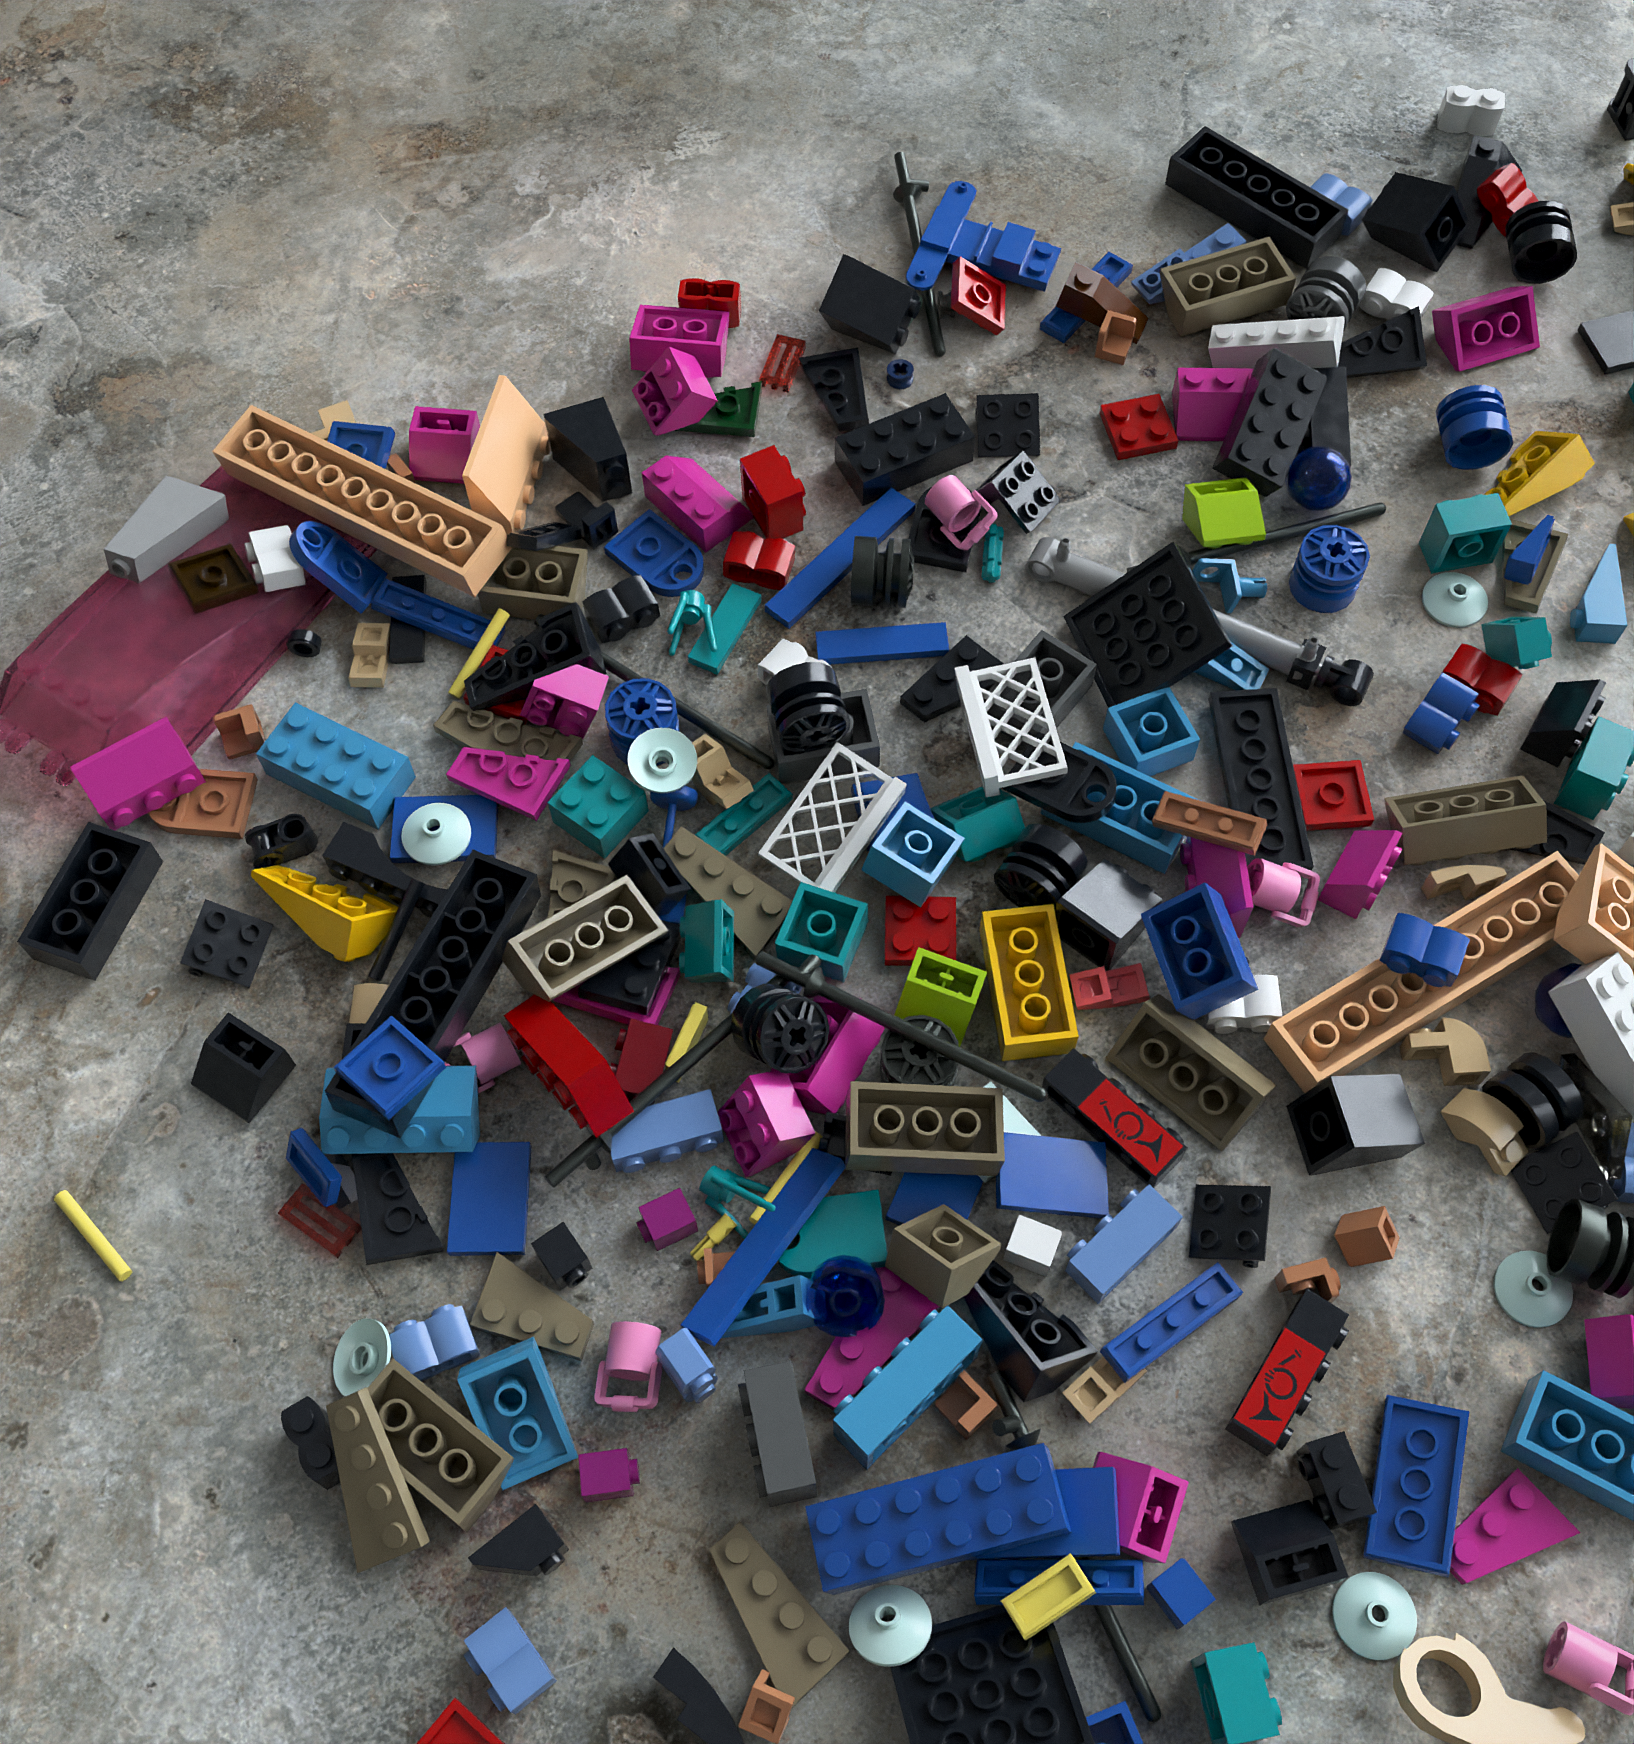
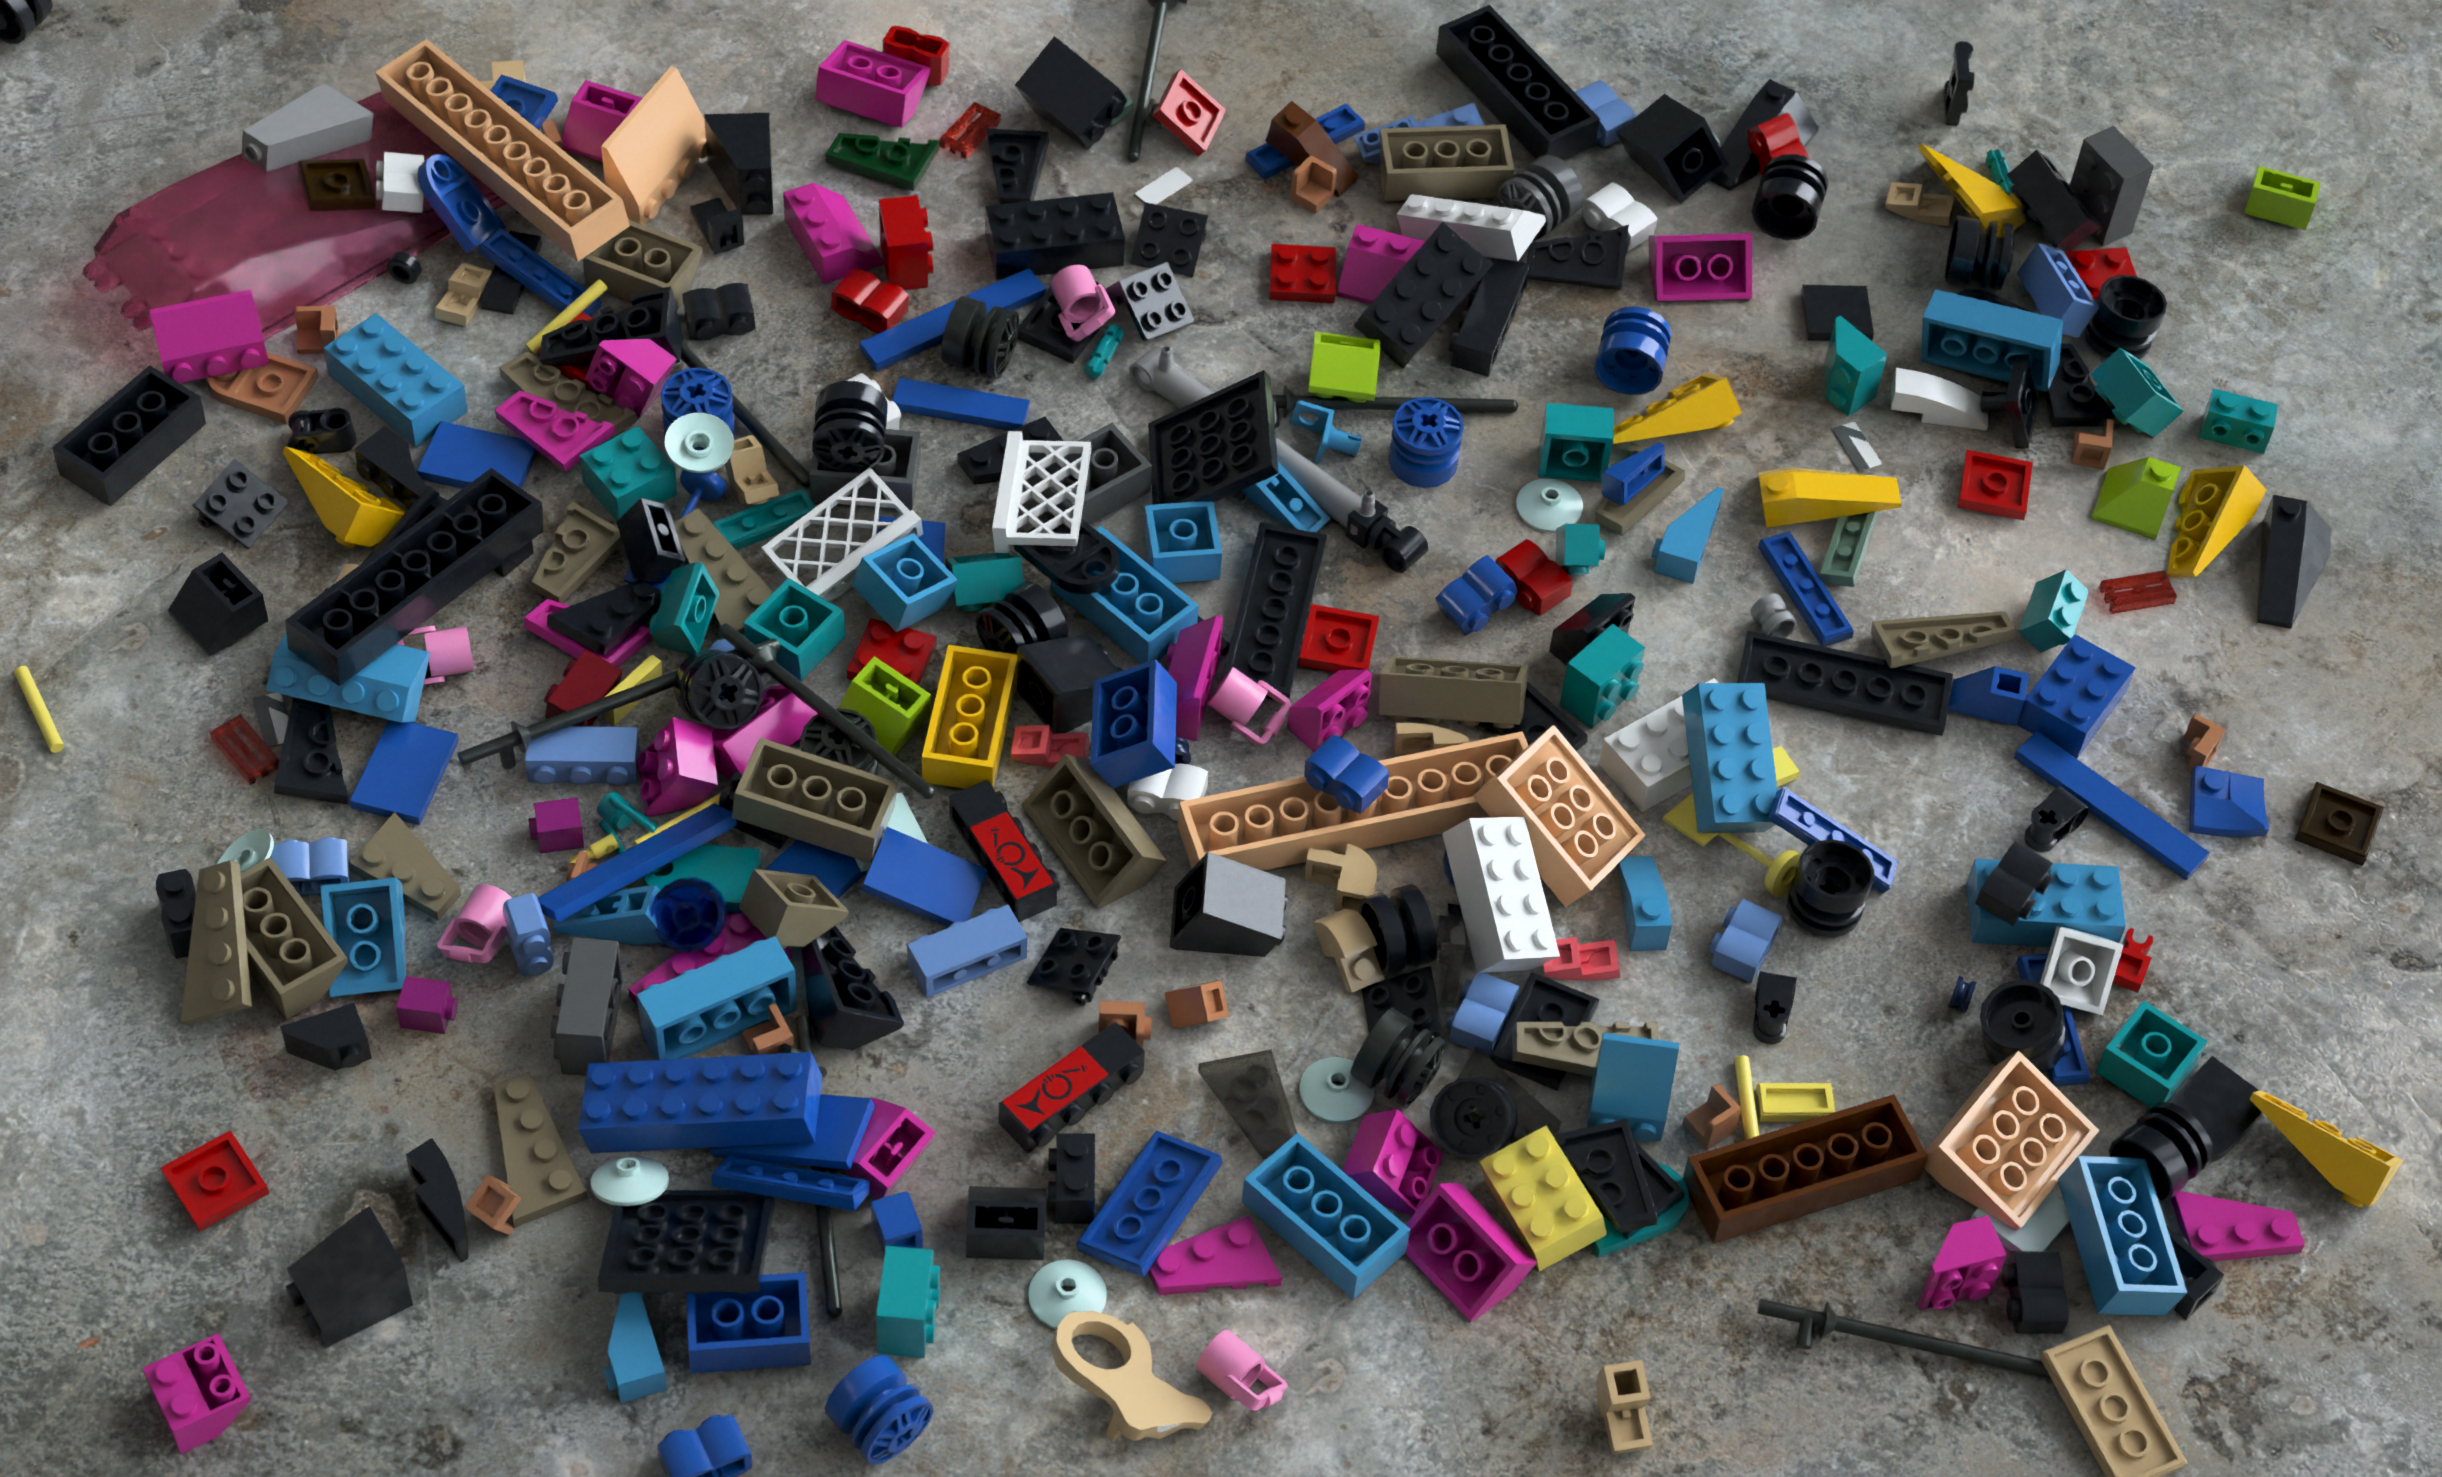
camera: 10 degrees right, 10 degrees down
(313, 1167) = (254, 701): blue tile -> none
(390, 1067) = (349, 616): blue tile -> none
(440, 845) = (465, 459): light aqua dish -> none
(509, 1662) = (287, 1119): medium blue brick -> none
(544, 536) = (665, 225): black tile -> none
(562, 1257) = (451, 829): black brick -> none
(567, 1065) = (511, 665): red brick -> none
(582, 940) = (565, 569): dark tan slope -> none
(657, 554) = (774, 272): blue tile -> none
(674, 392) = (845, 128): dark pink slope -> none
(690, 611) = (785, 326): teal plant -> none
(728, 625) = (813, 354): teal tile -> none
(900, 381) = (1083, 175): dark blue bush -> none
(978, 373) = (1164, 186): none -> white sticker
(1000, 253) = (1236, 80): blue piece -> none
(1032, 1245) = (879, 928): white panel -> none
(1048, 1597) = (772, 1182): light yellow tile -> none
(1098, 1389) = (899, 1058): tan slope -> none
(1171, 1322) = (984, 1023): blue tile -> none
(1209, 823) = (1191, 619): nougat tile -> none
(1319, 478) = (1454, 359): clear blue cylinder -> none
(1468, 1330) = (1253, 1097): none -> clear smoke wing
(1470, 110) = (1786, 56): white brick -> none

